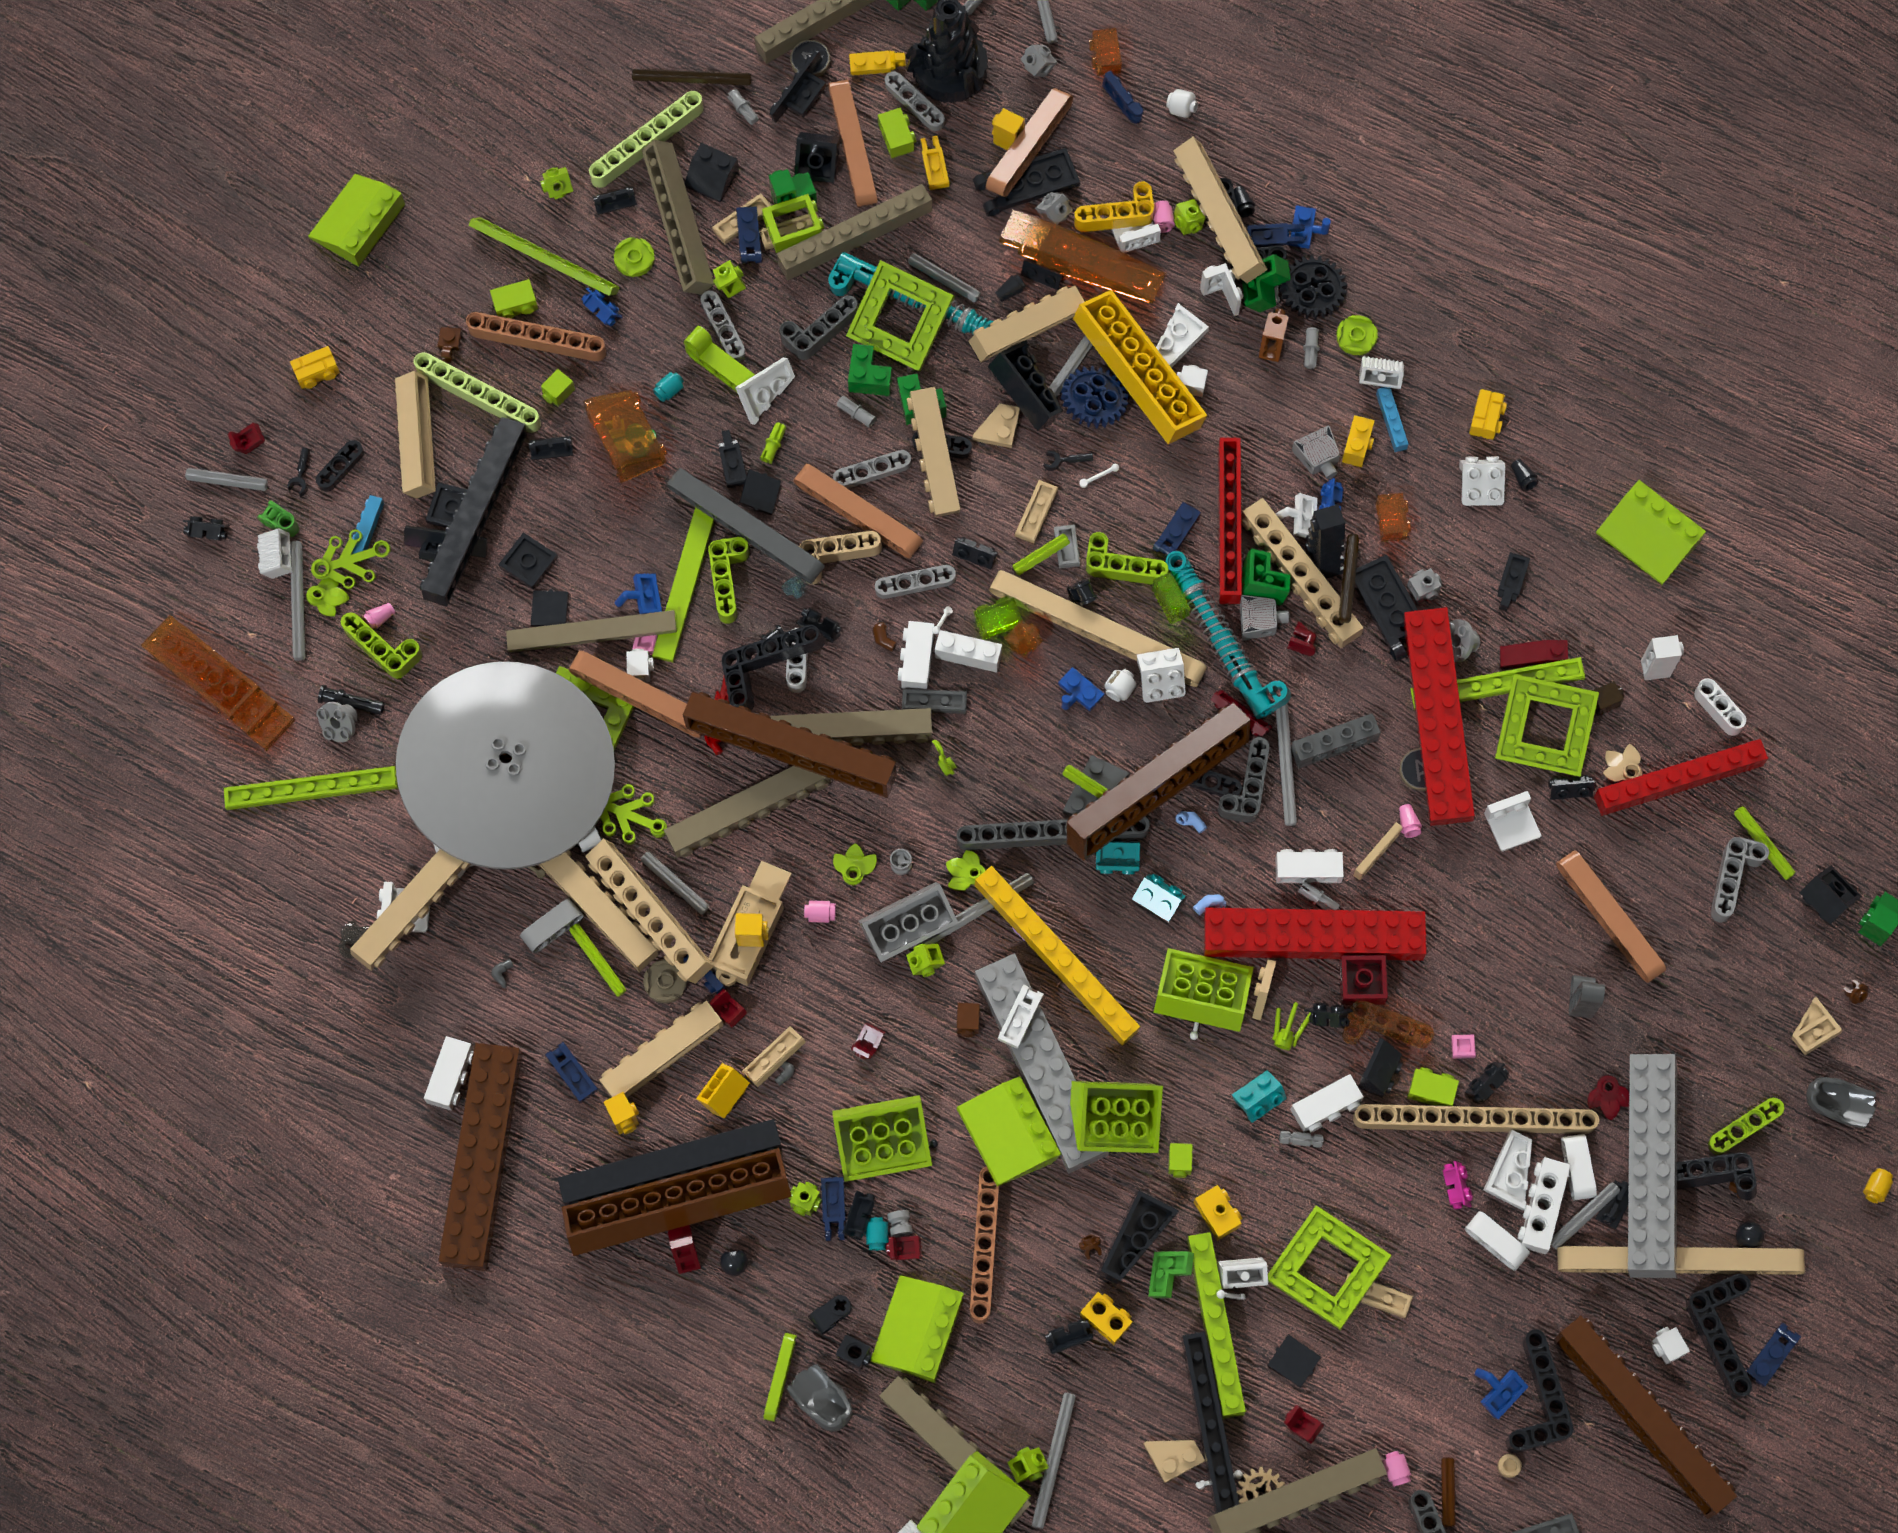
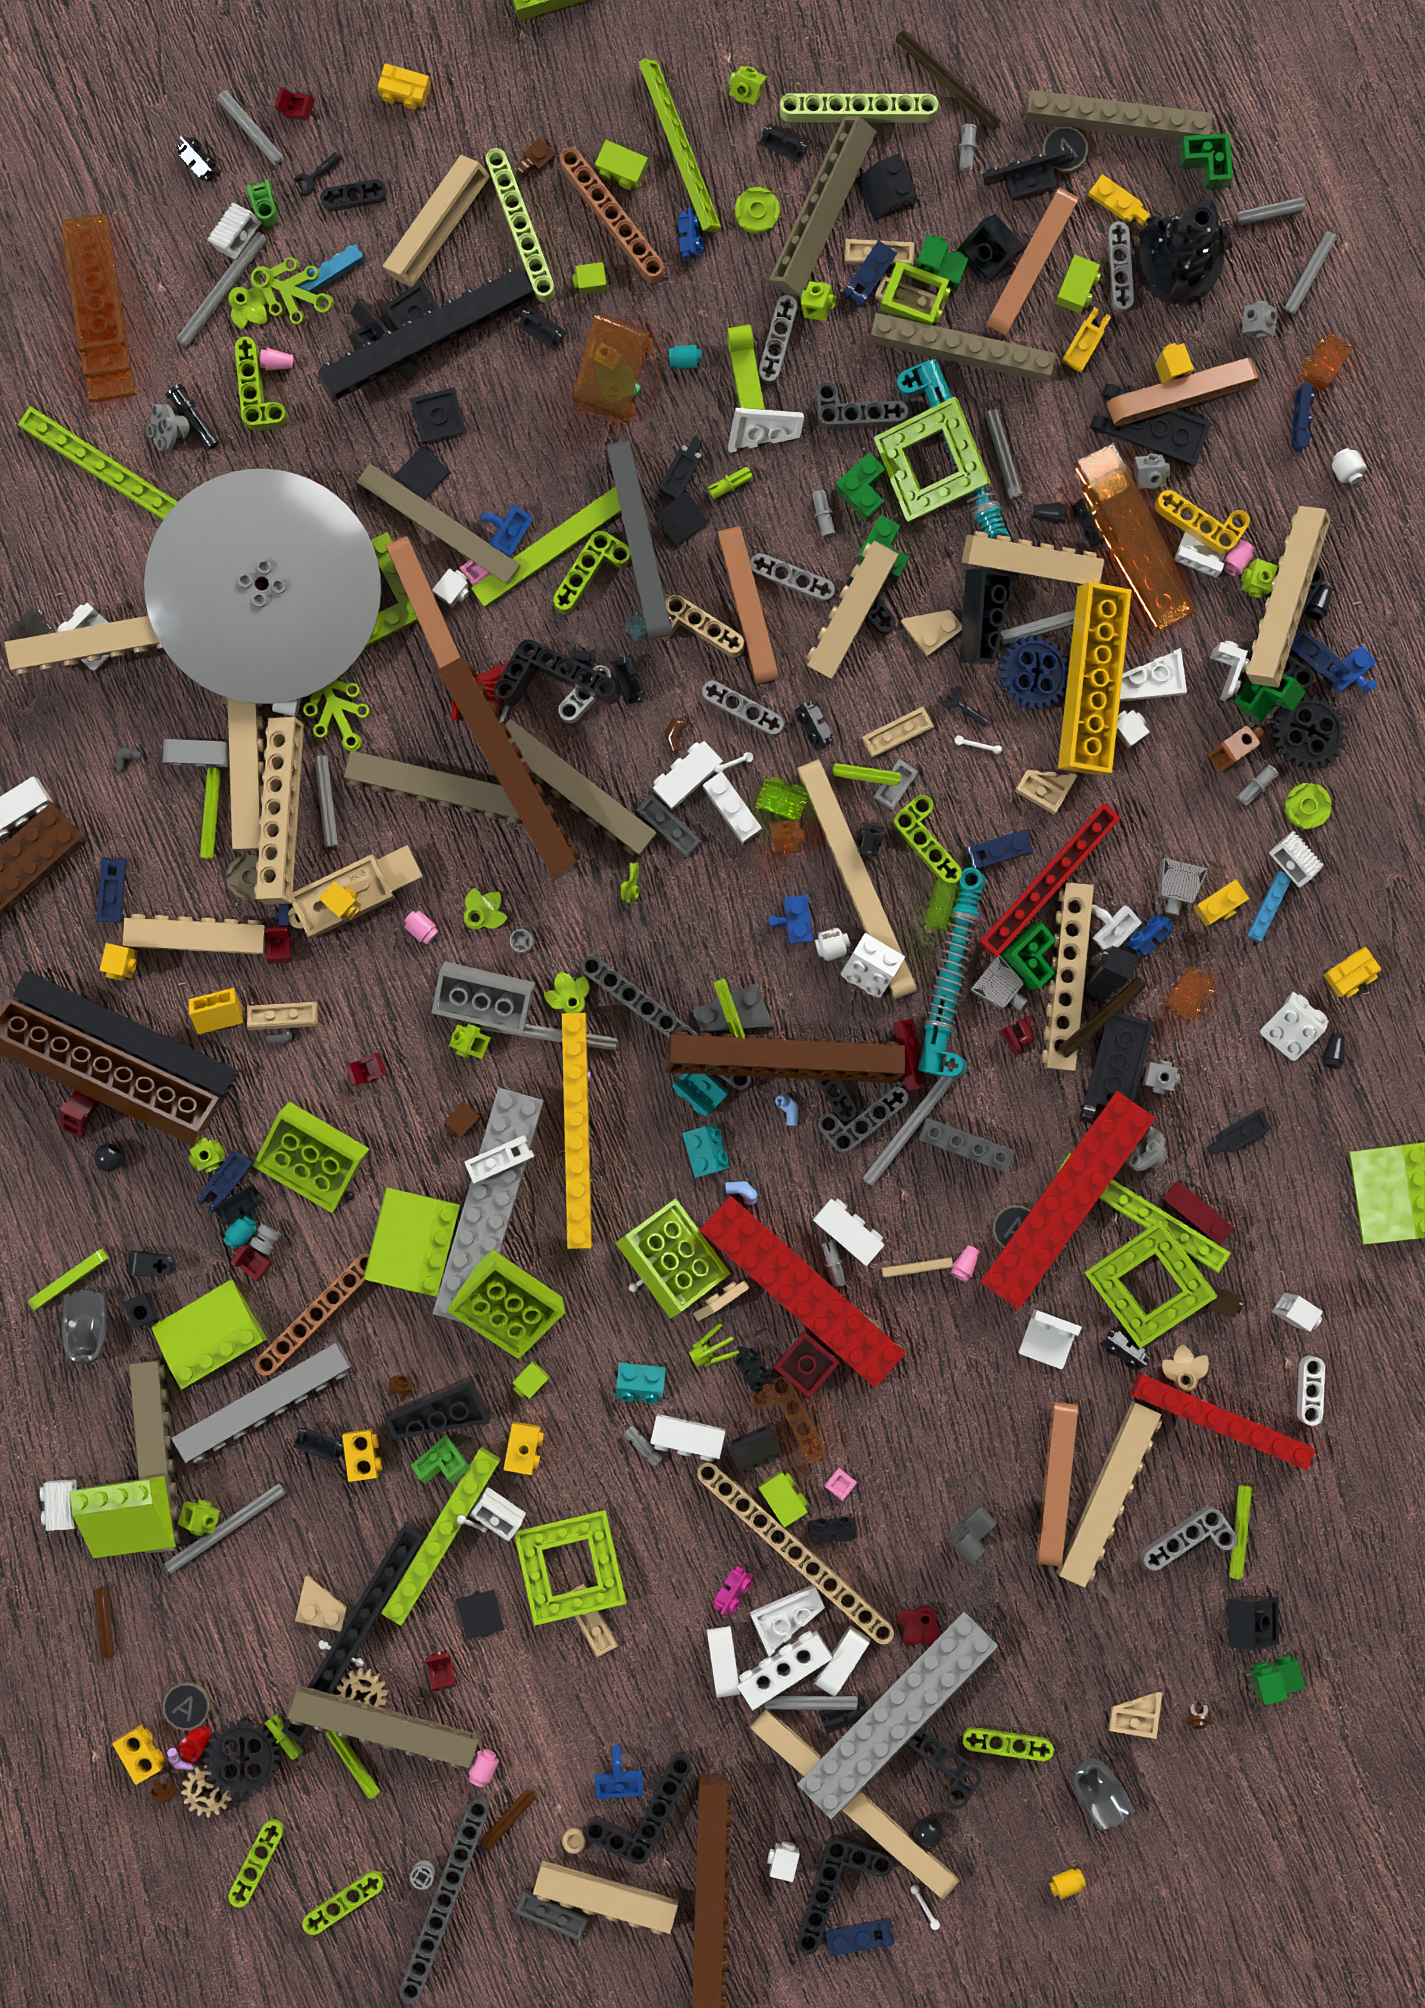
camera: 35 degrees right, 15 degrees up
(1000, 1343) = (261, 1402): none -> light grey brick
(1171, 465) = (1045, 788): none -> tan wing
(1569, 1484) = (605, 1897): none -> tan brick
(1652, 892) = (1109, 1493): none -> tan brick
(1815, 1299) = (934, 1923): none -> white hinge

